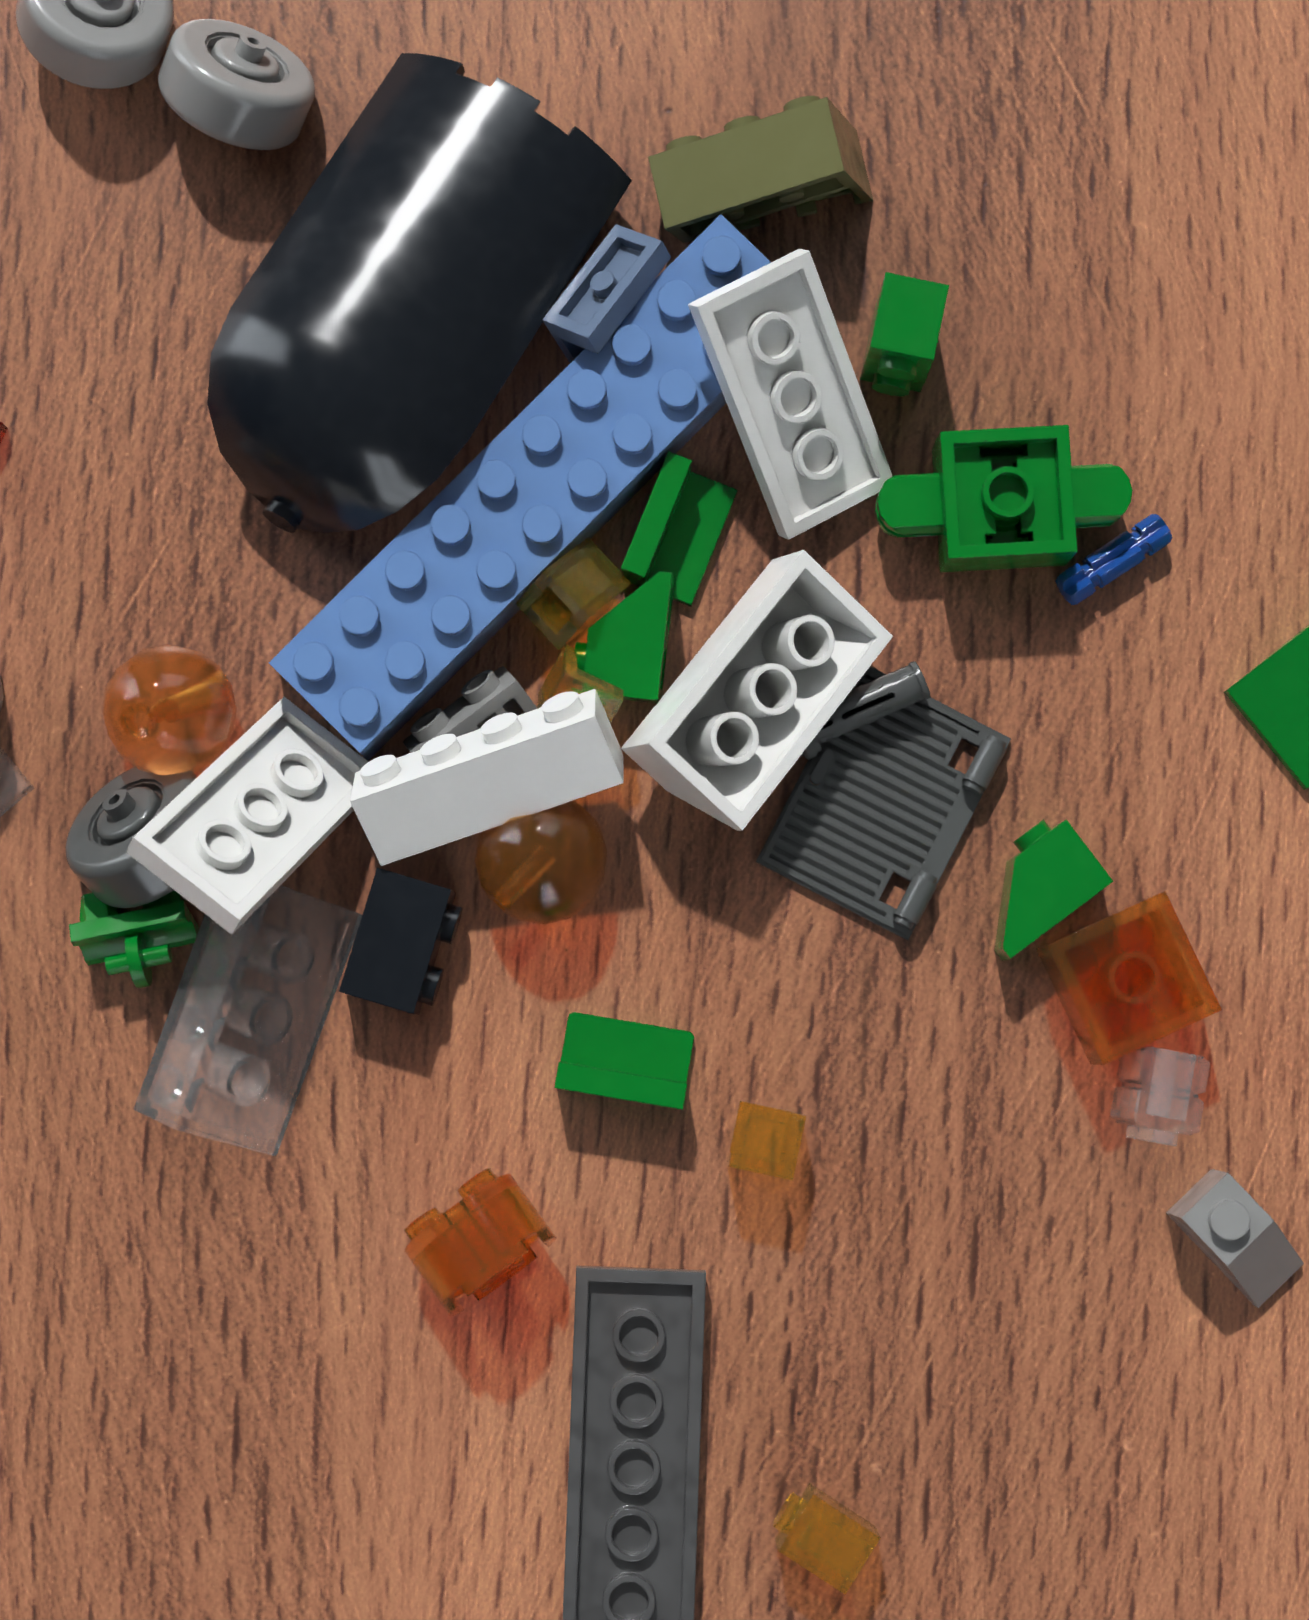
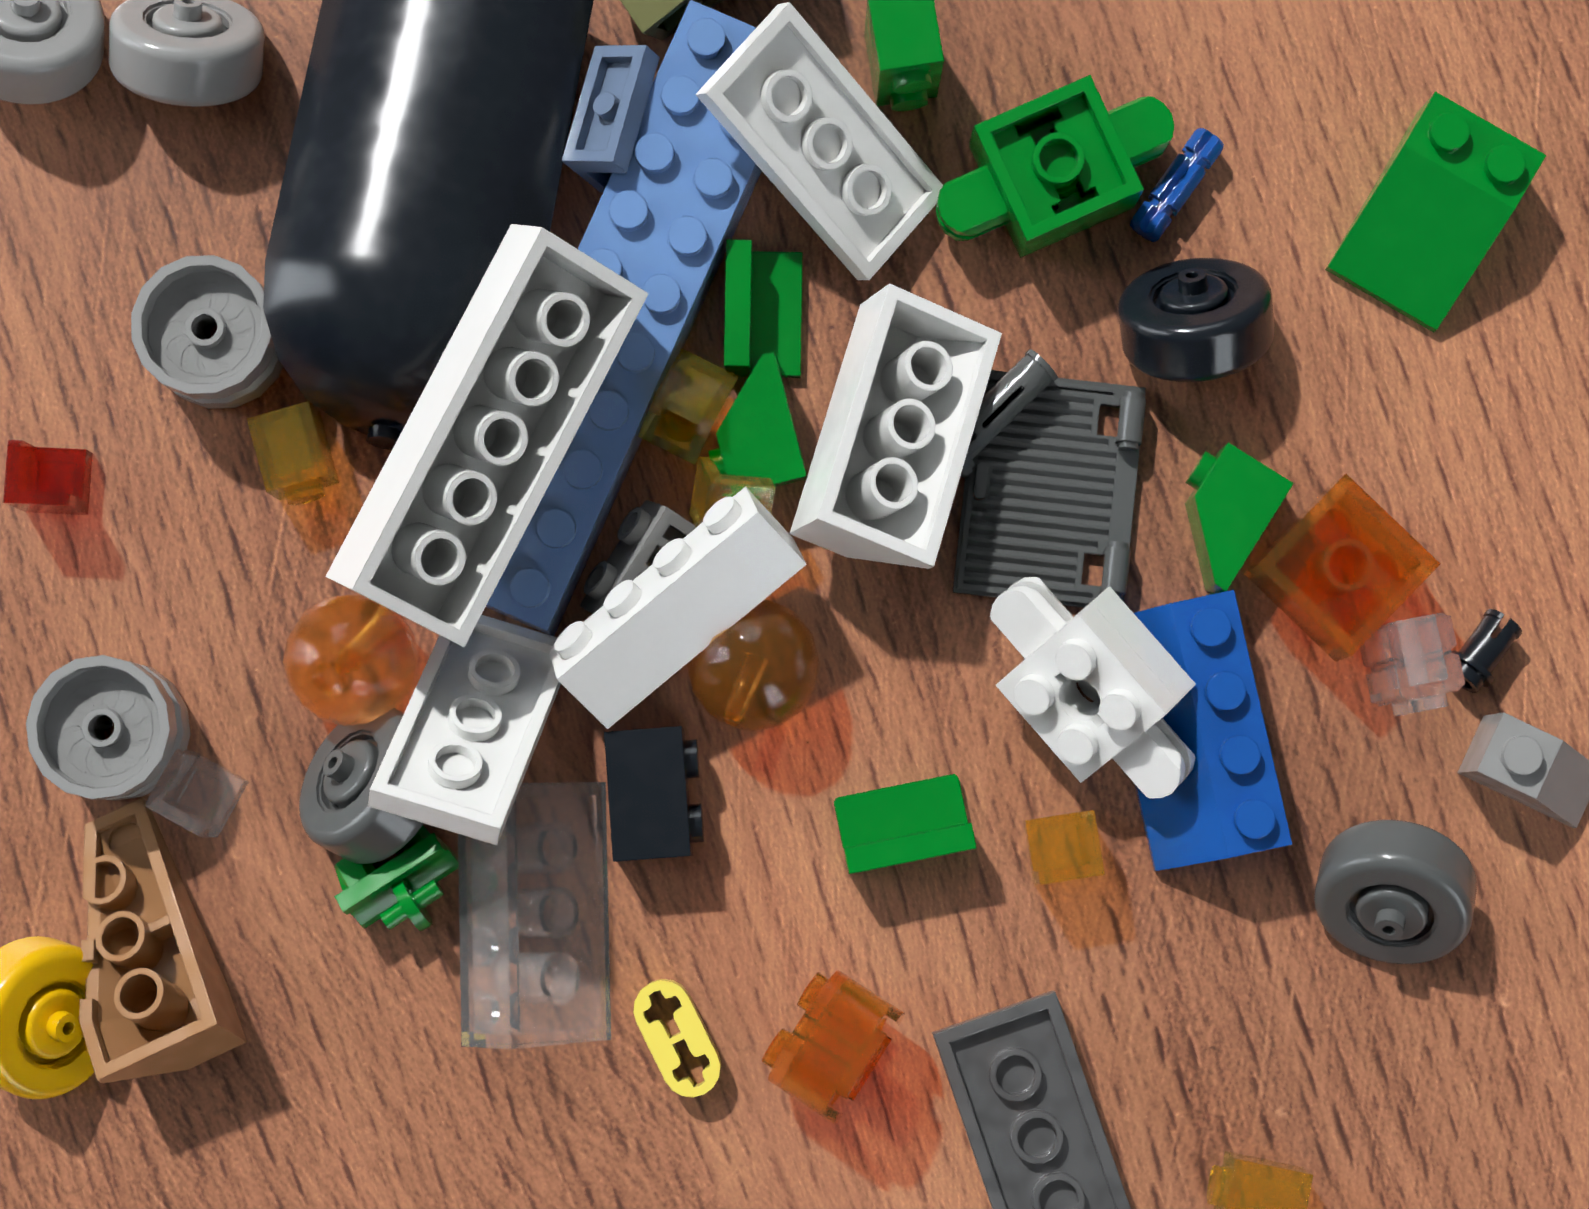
camera: 20 degrees left, 0 degrees up
(120, 350) = (172, 326): none -> light grey wheel
(191, 498) = (293, 453): none -> clear yellow brick
(321, 1179) = (663, 1044): none -> light yellow beam
(371, 548) = (488, 433): none -> white brick
(877, 986) = (1114, 665): none -> white brick
(931, 1079) = (1232, 794): none -> blue slope
(1062, 1302) = (1396, 892): none -> dark grey wheel
(1082, 692) = (1196, 319): none -> black wheel
(1232, 1109) = (1483, 653): none -> black pin

